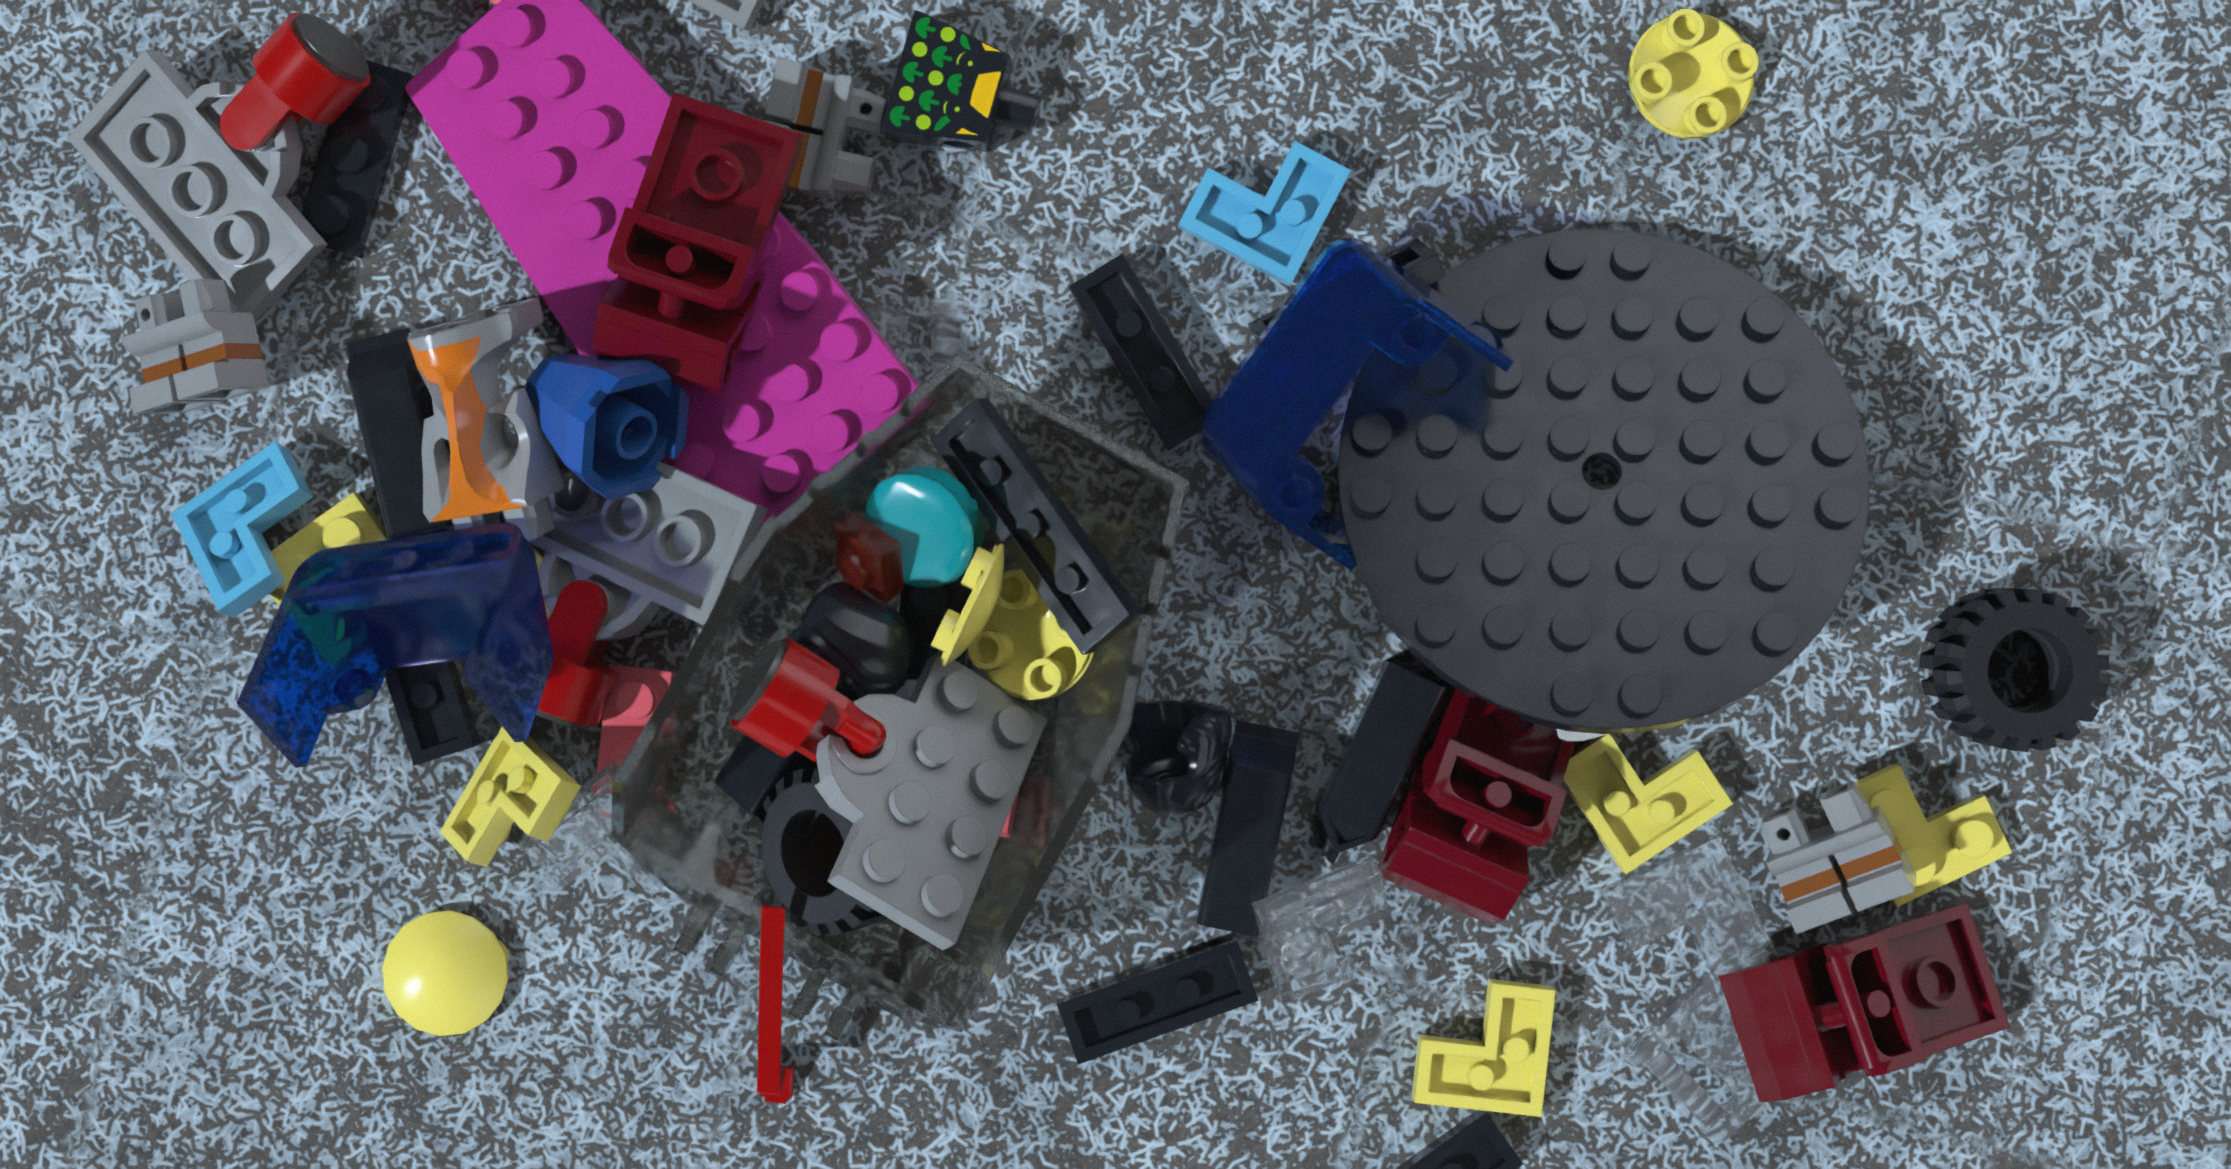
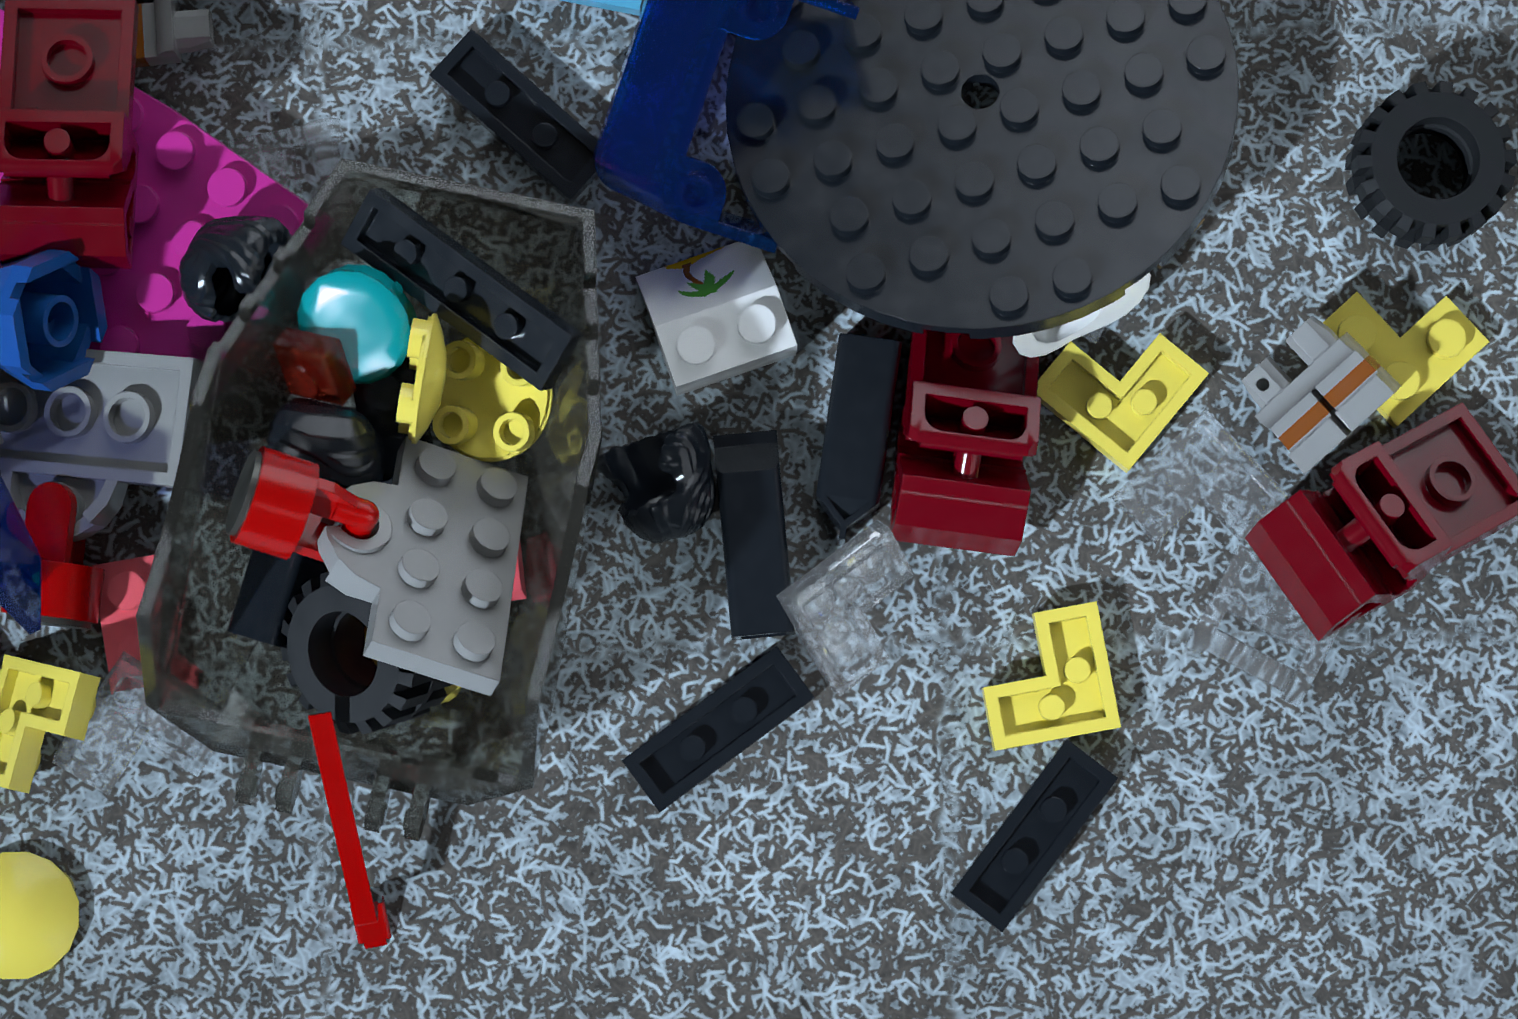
camera: 25 degrees left, 5 degrees down
(819, 424) = (228, 262): none -> black hair
(1275, 604) = (717, 316): none -> white slope

